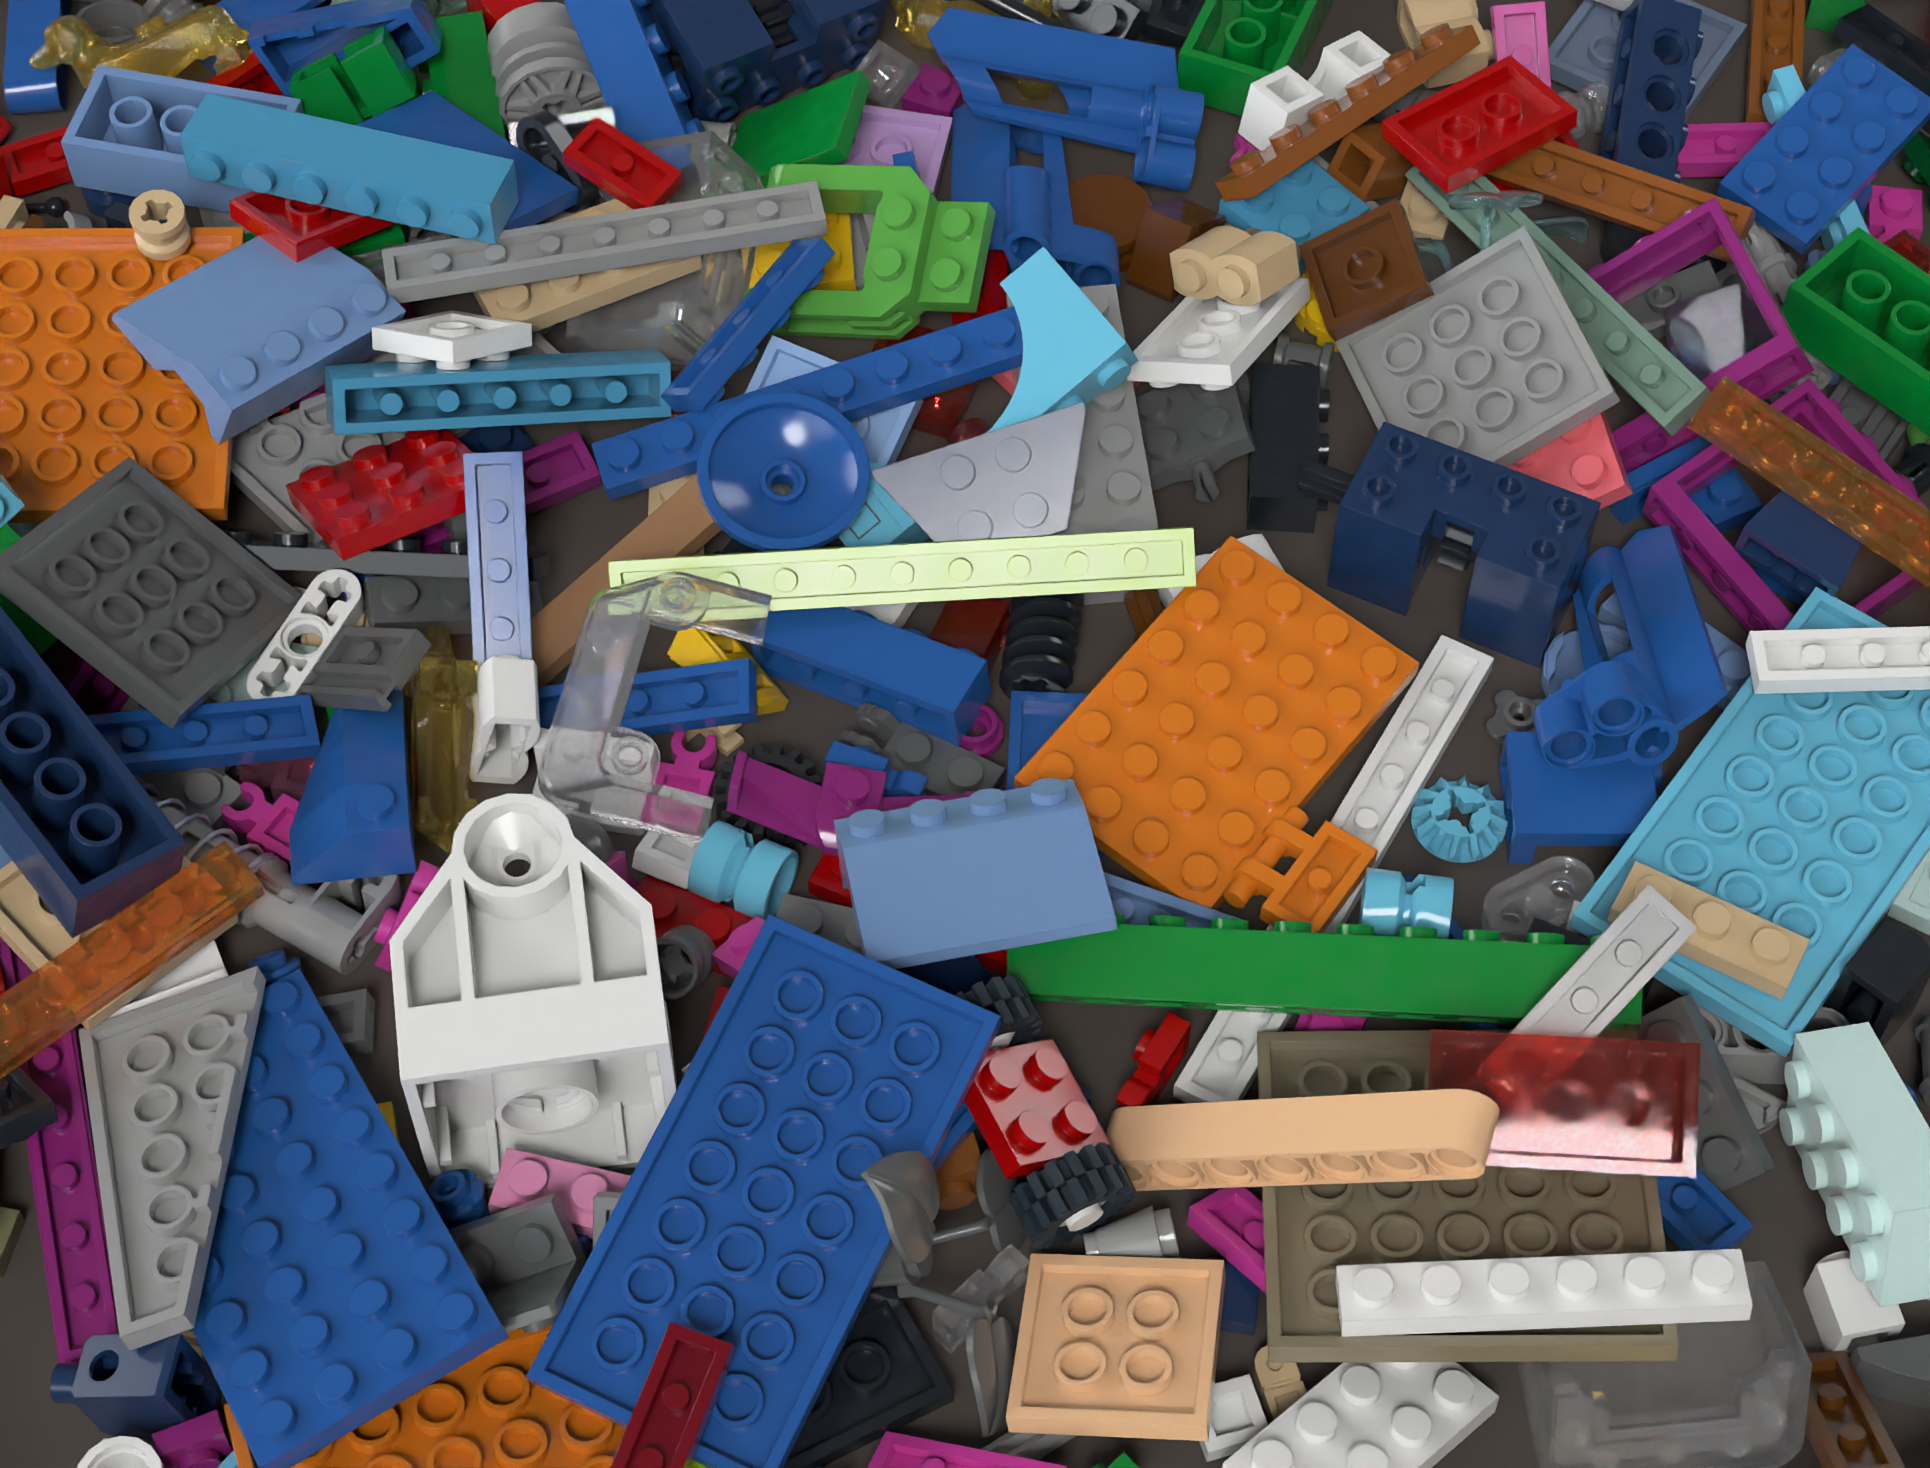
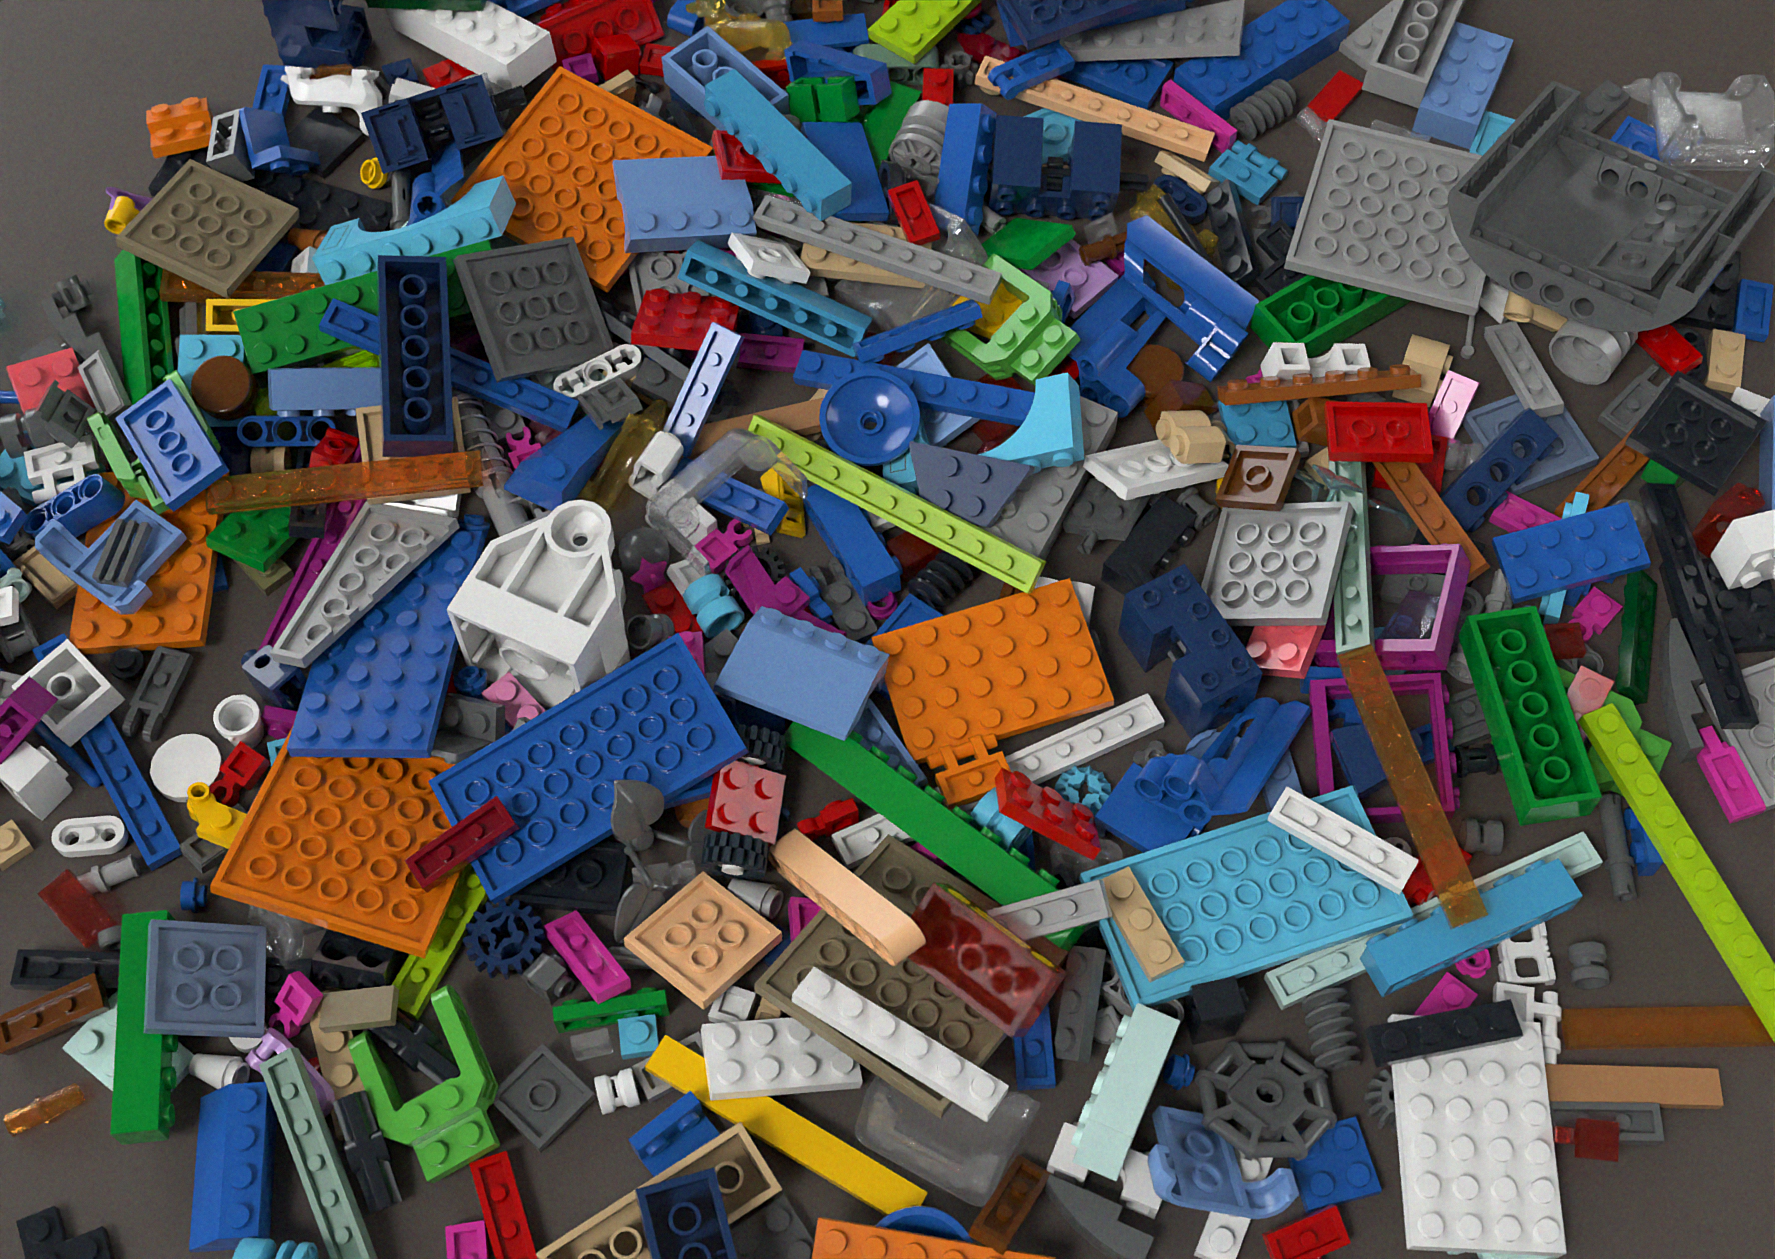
camera: 35 degrees right, 5 degrees up
(157, 239) = (676, 131): tan wheel -> none
(913, 85) = (1102, 249): none -> reddish brown axle
(1459, 862) = (1047, 813): none -> red plate

